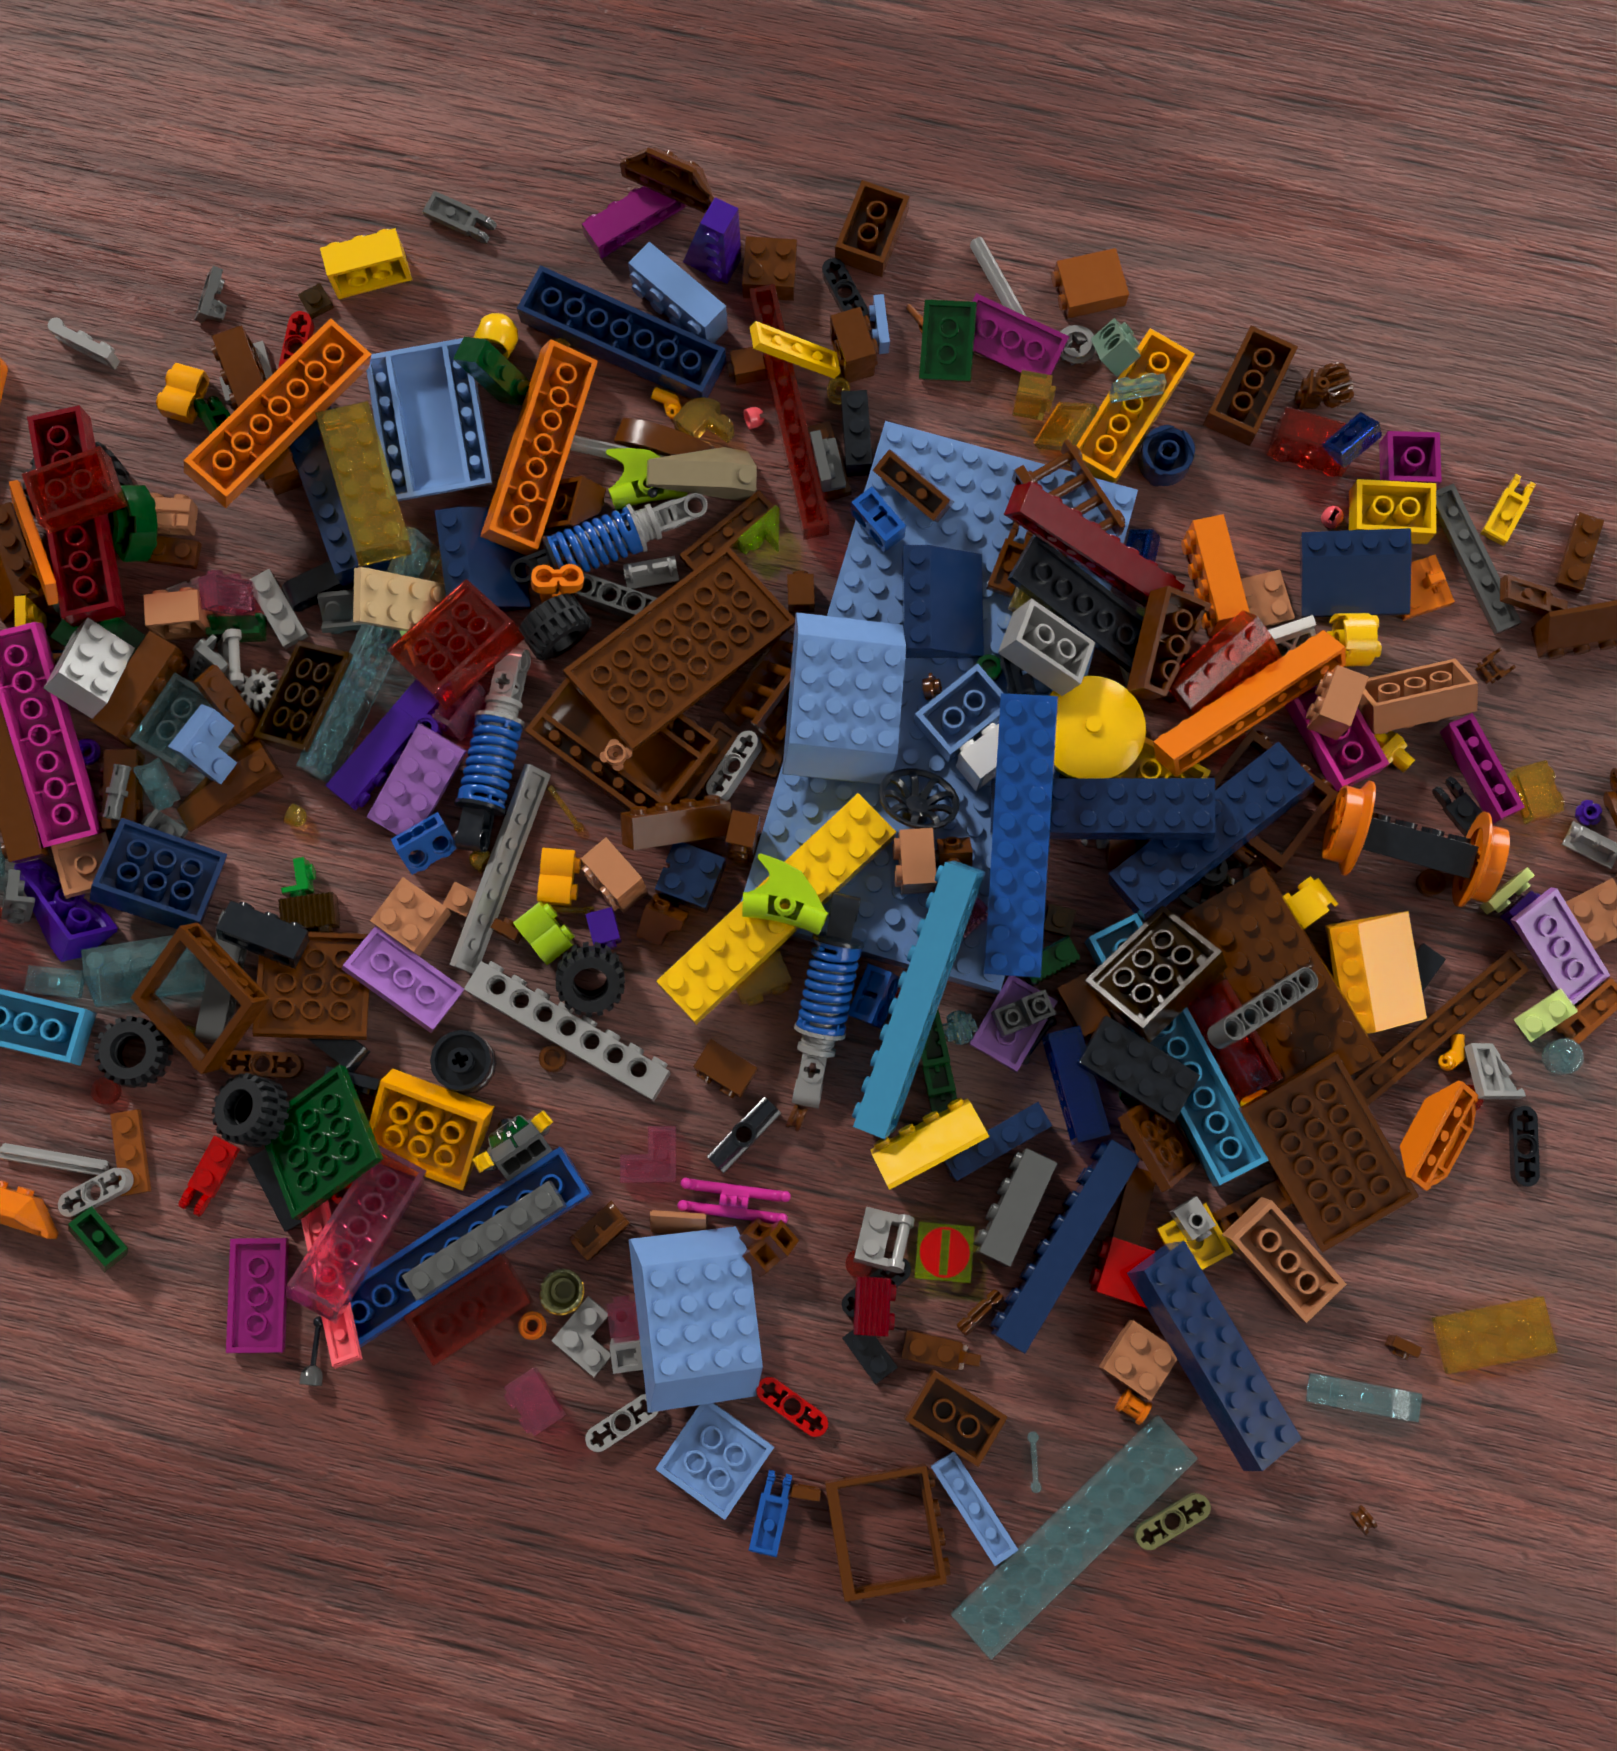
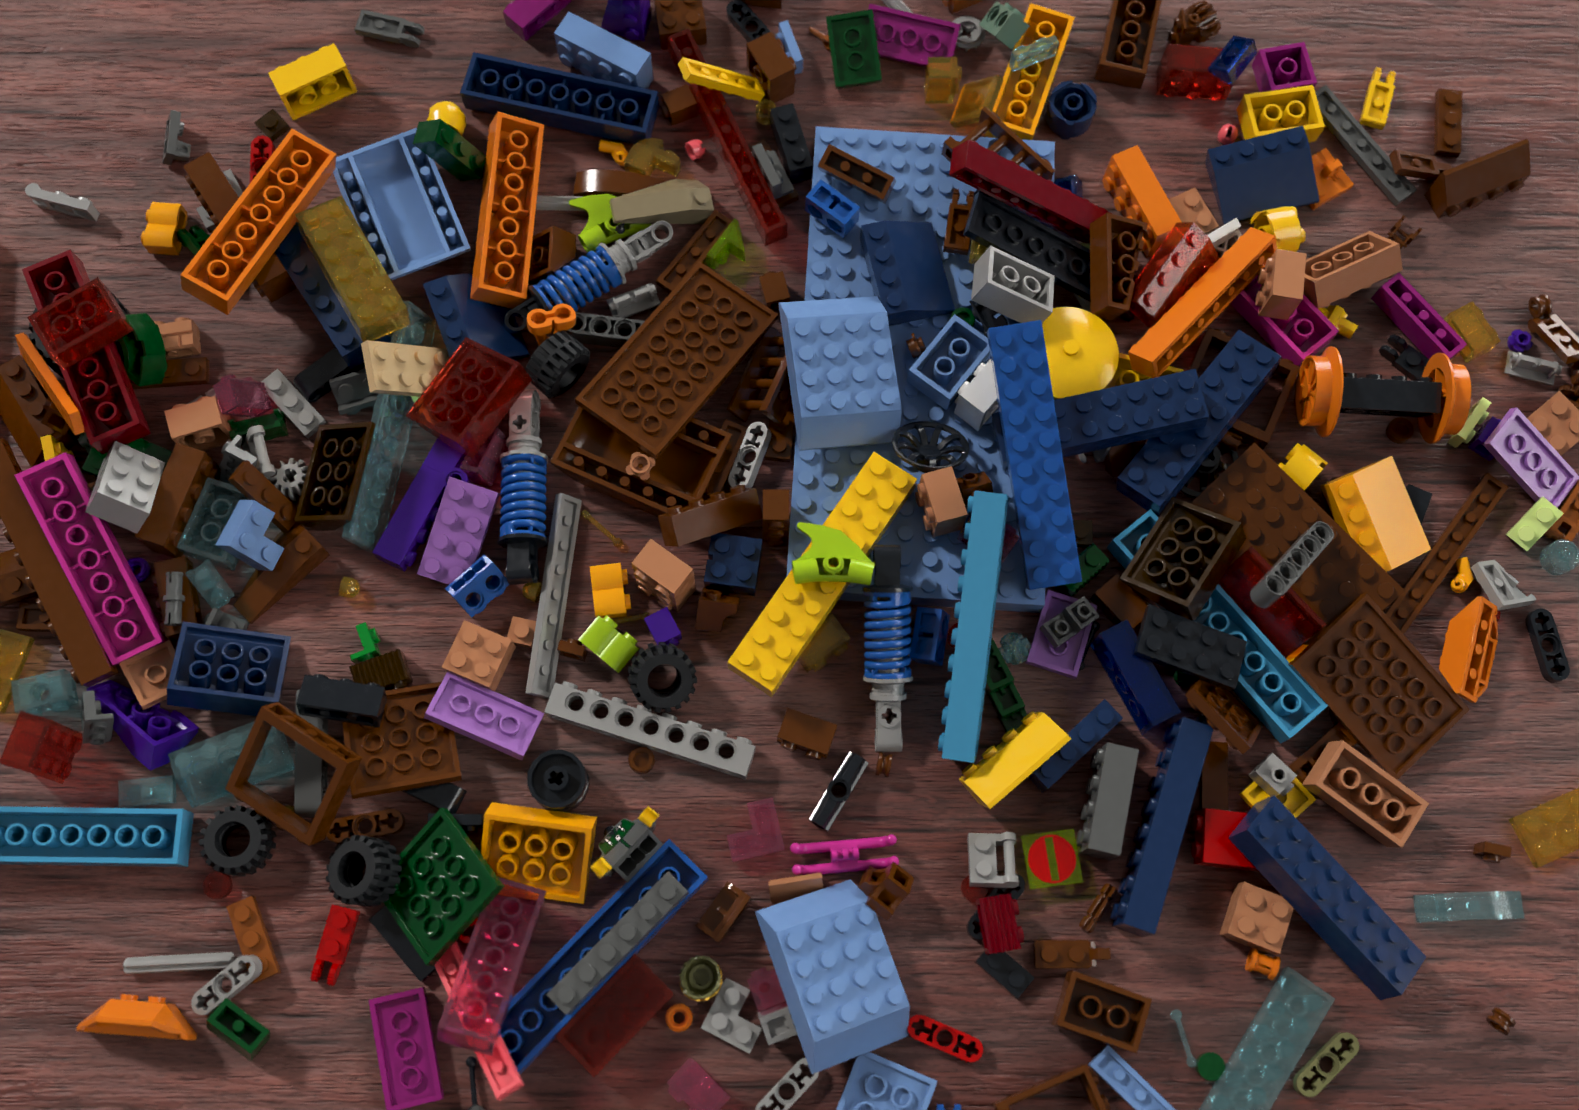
camera: 15 degrees left, 5 degrees down
(1053, 1495) = (1210, 1066): none -> dark green tile

